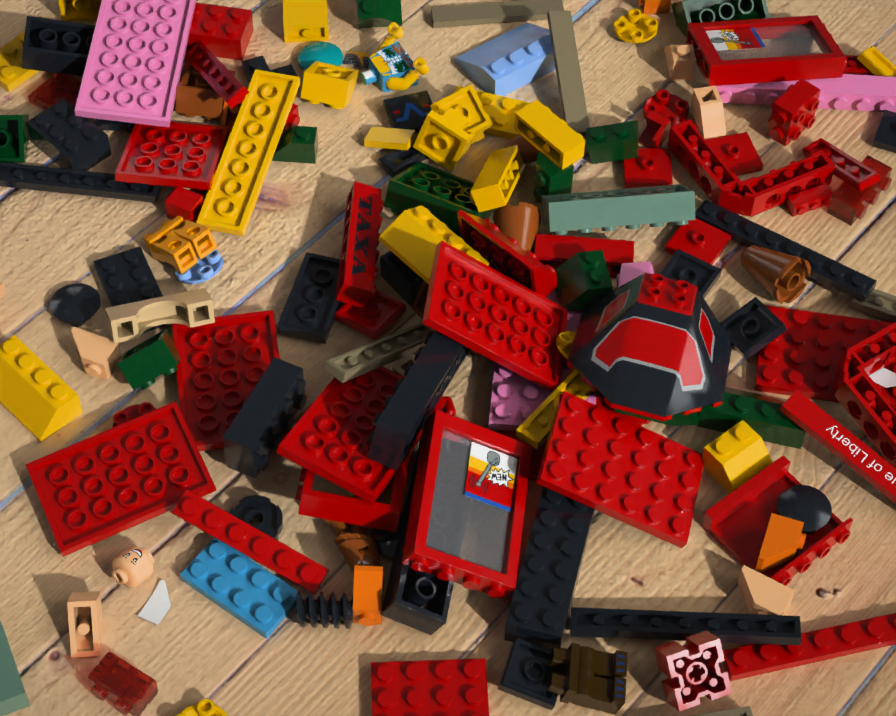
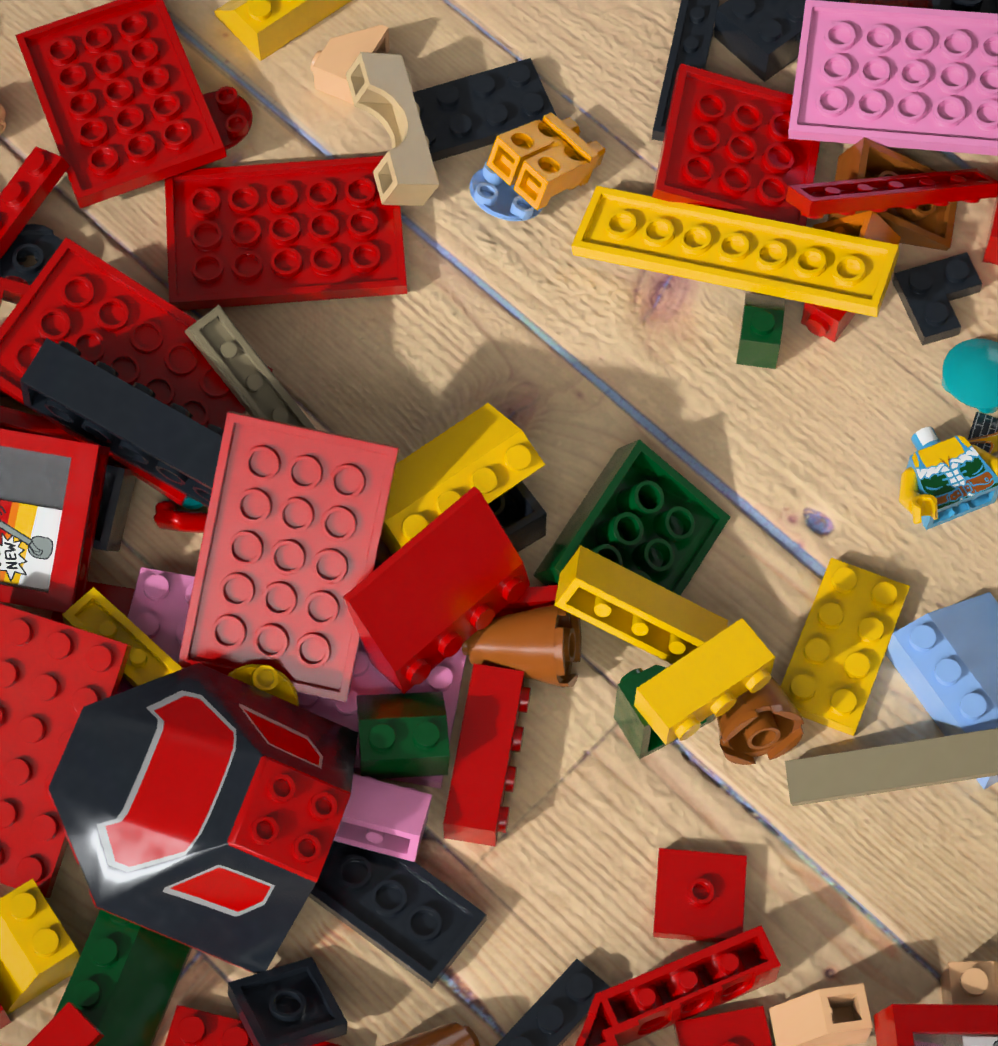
camera: 95 degrees right, 10 degrees up
(75, 303) = (454, 41): black dish -> none
(149, 360) = (321, 123): dark green slope -> none
(184, 204) = (632, 167): red brick -> none
(264, 418) = (169, 250): black brick -> none
(312, 300) = (433, 348): black plate -> none
(329, 84) = (906, 378): yellow slope -> none
(359, 245) = (527, 400): red brick -> none
(374, 318) = (396, 416): red plate -> none
(389, 138) = (776, 468): yellow tile -> none
(400, 160) = (740, 494): black tile -> none
(408, 110) = (845, 511): black tile -> none
(444, 138) = (754, 541): yellow panel -> none
(468, 104) = (802, 573): yellow panel -> none
(612, 142) = (761, 832): dark green slope -> none
(618, 208) = (571, 813): sand green brick -> none
(656, 131) = (782, 917): red panel -> none
(668, 106) = (845, 947): red dish -> none
(699, 241) = (511, 960): red plate -> none

